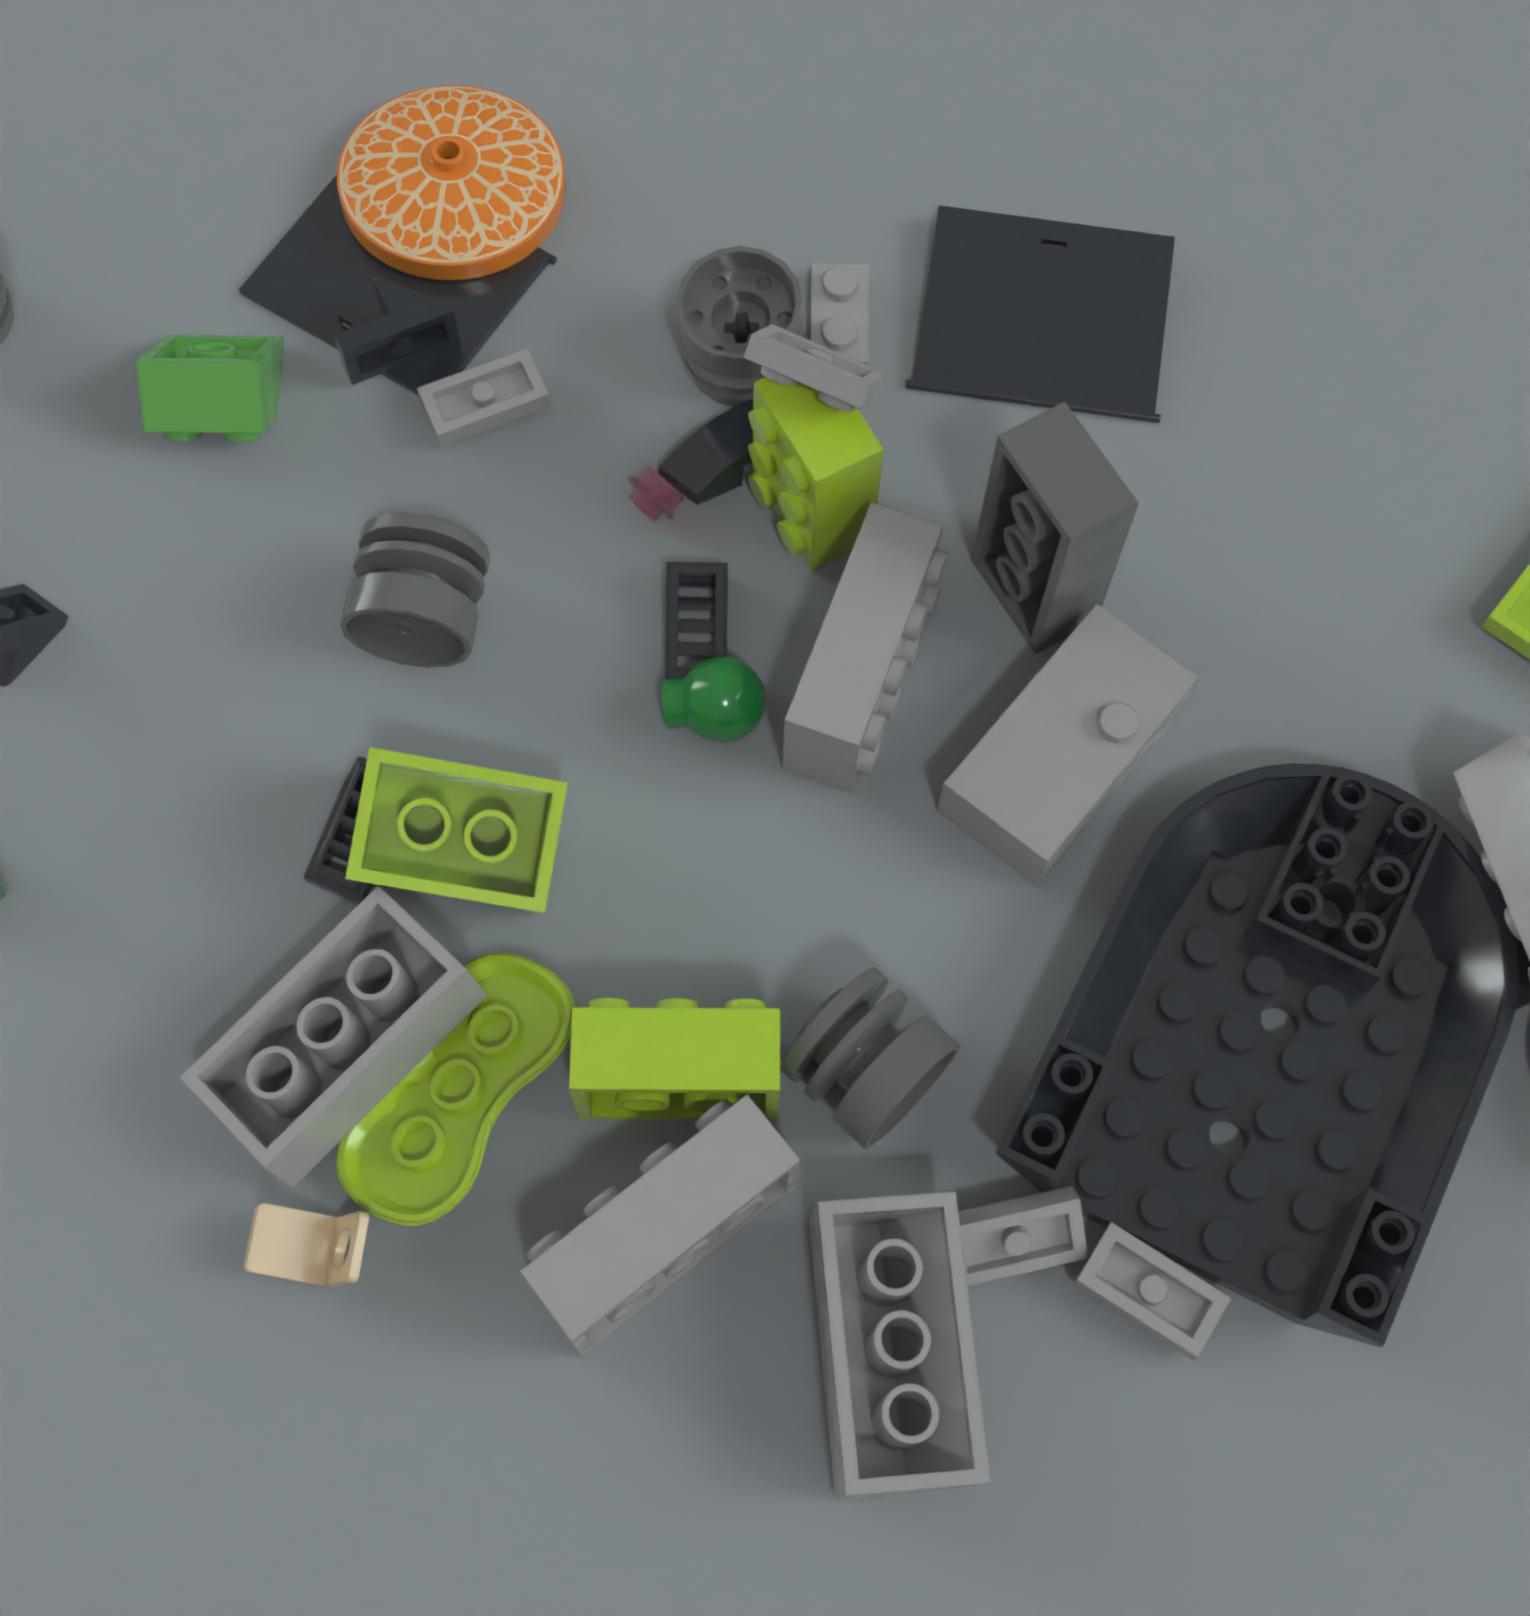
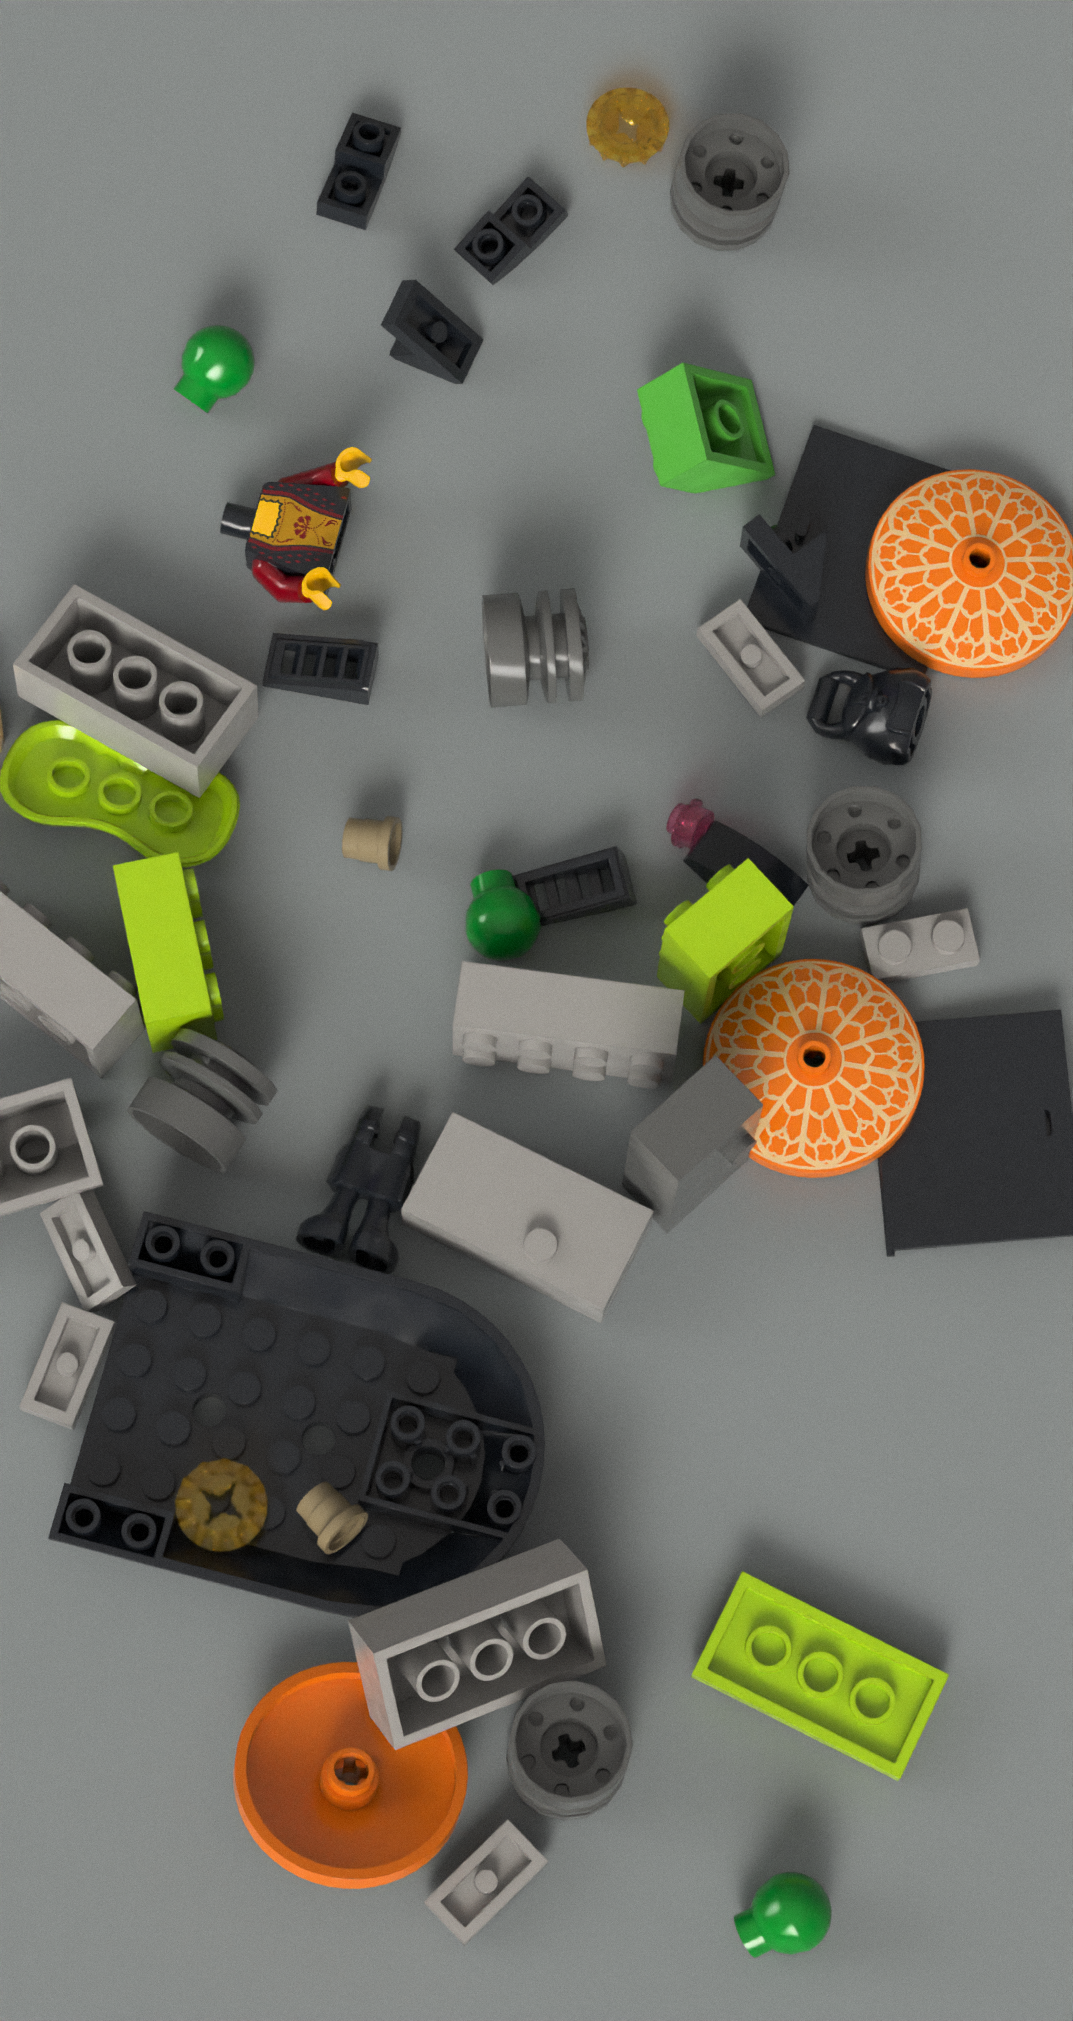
camera: 75 degrees right, 5 degrees up
(191, 816) = (299, 529): none -> torso
(456, 830) = (321, 734): lime brick -> none
(582, 287) = (880, 713): none -> black piece
(589, 816) = (373, 841): none -> dark tan piece
(794, 359) = (762, 900): light grey plate -> none
(942, 418) = (851, 1105): none -> orange dish
(988, 893) = (367, 1175): none -> black piece
(1328, 1135) = (226, 1531): none -> clear yellow gear
(1396, 1011) = (331, 1517): none -> dark tan piece

